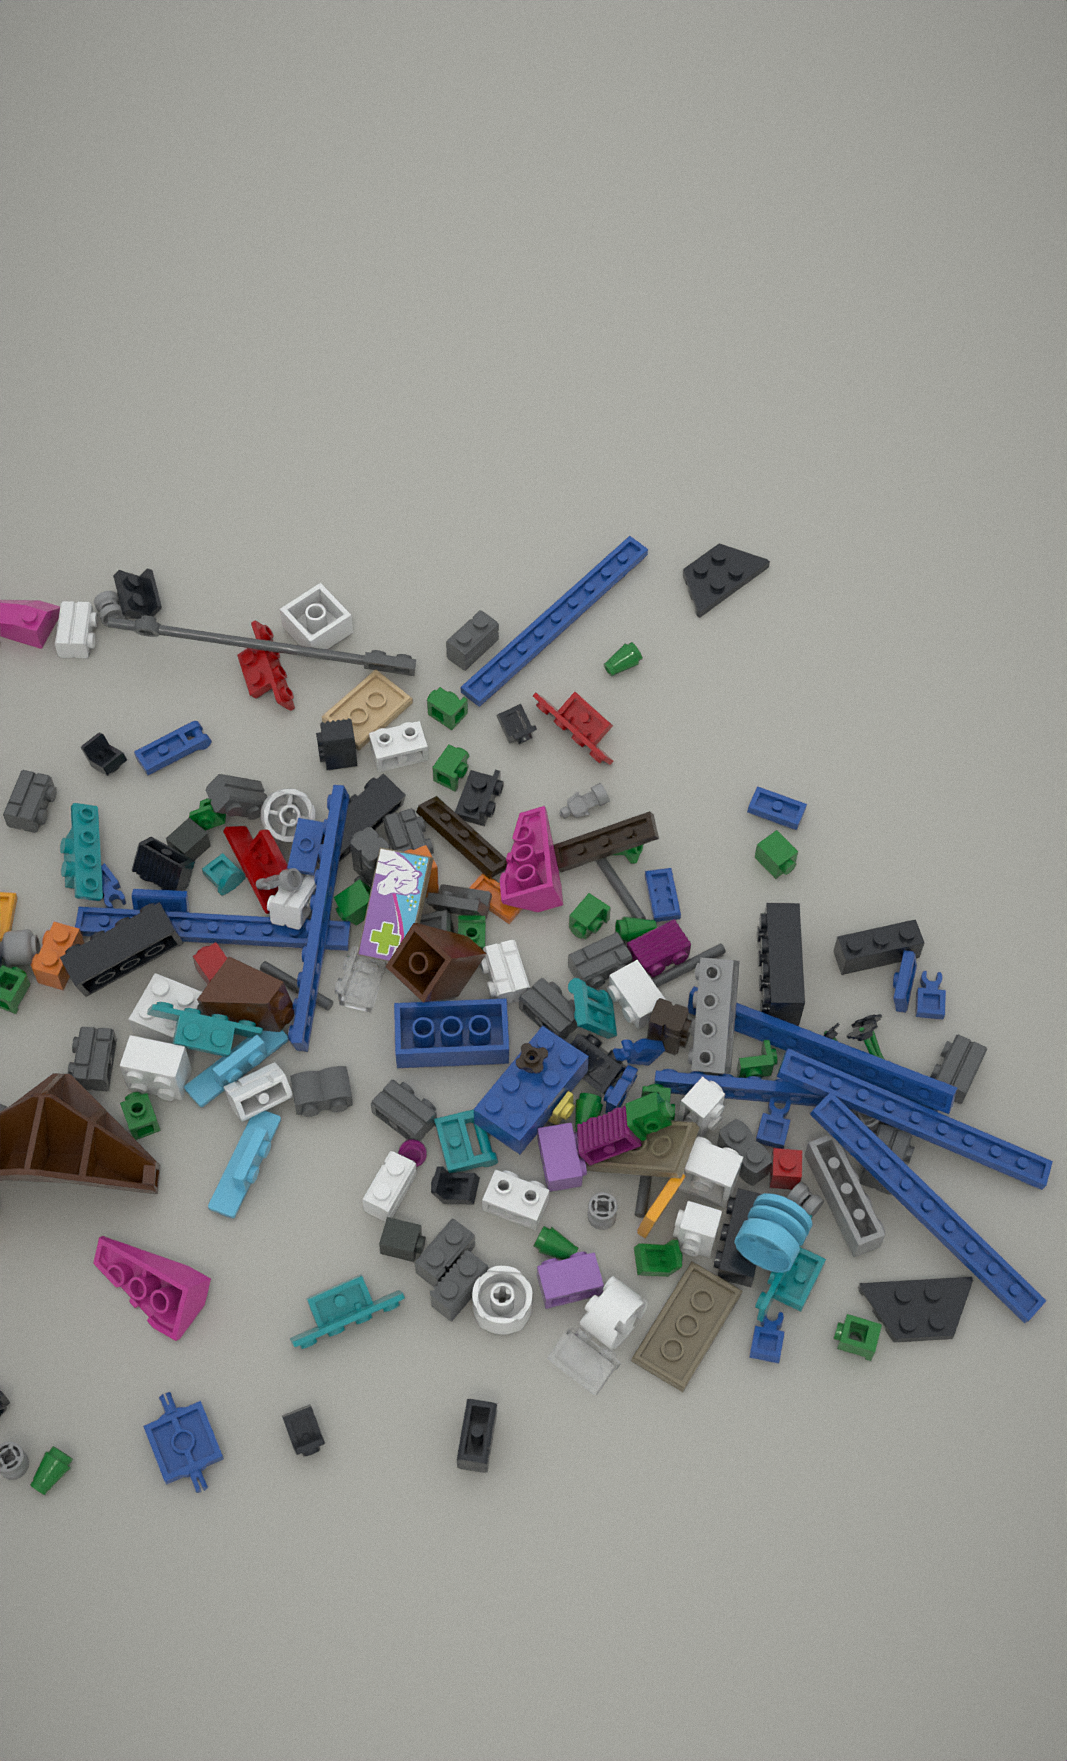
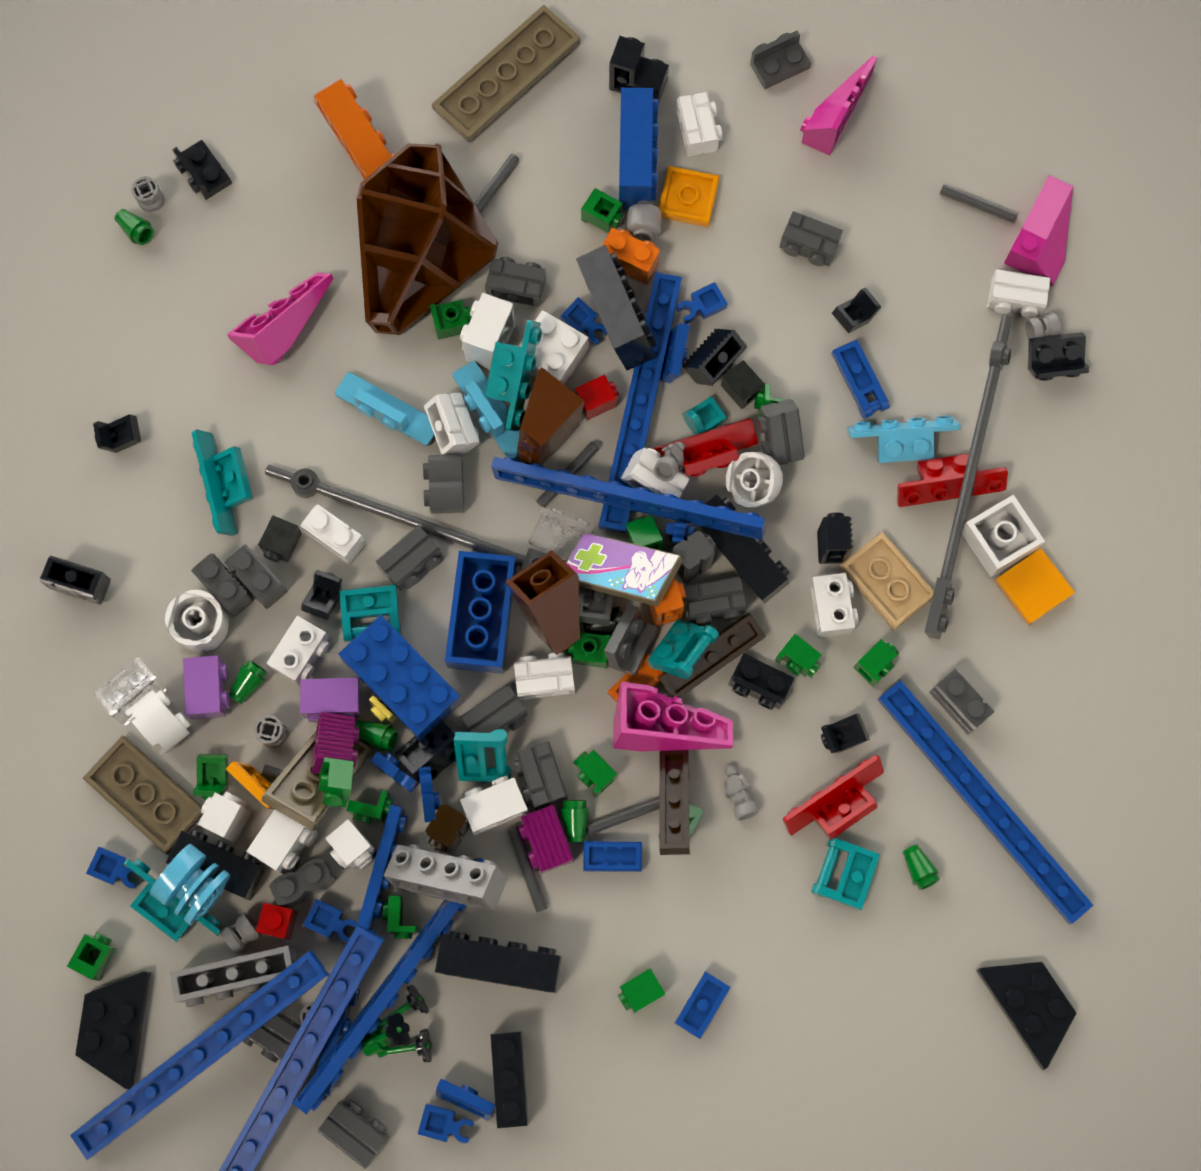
camera: 100 degrees right, 15 degrees up
(83, 853) = (739, 284): teal bracket -> none
(129, 992) = (582, 319): none -> blue plate
(183, 1442) = (133, 334): blue plate -> none
(228, 706) = (904, 440): none -> medium azure bracket
(306, 846) = (707, 489): blue plate -> none
(346, 874) = (678, 531): none -> blue plate
(361, 598) = (1034, 586): none -> light orange tile
(392, 992) = (314, 486): none -> dark grey bar
(414, 1151) = (364, 560): magenta plate -> none
(457, 863) = (677, 644): none -> teal plate
(528, 1065) = (424, 674): dark brown plate -> none
(639, 706) = (854, 877): none -> teal plate

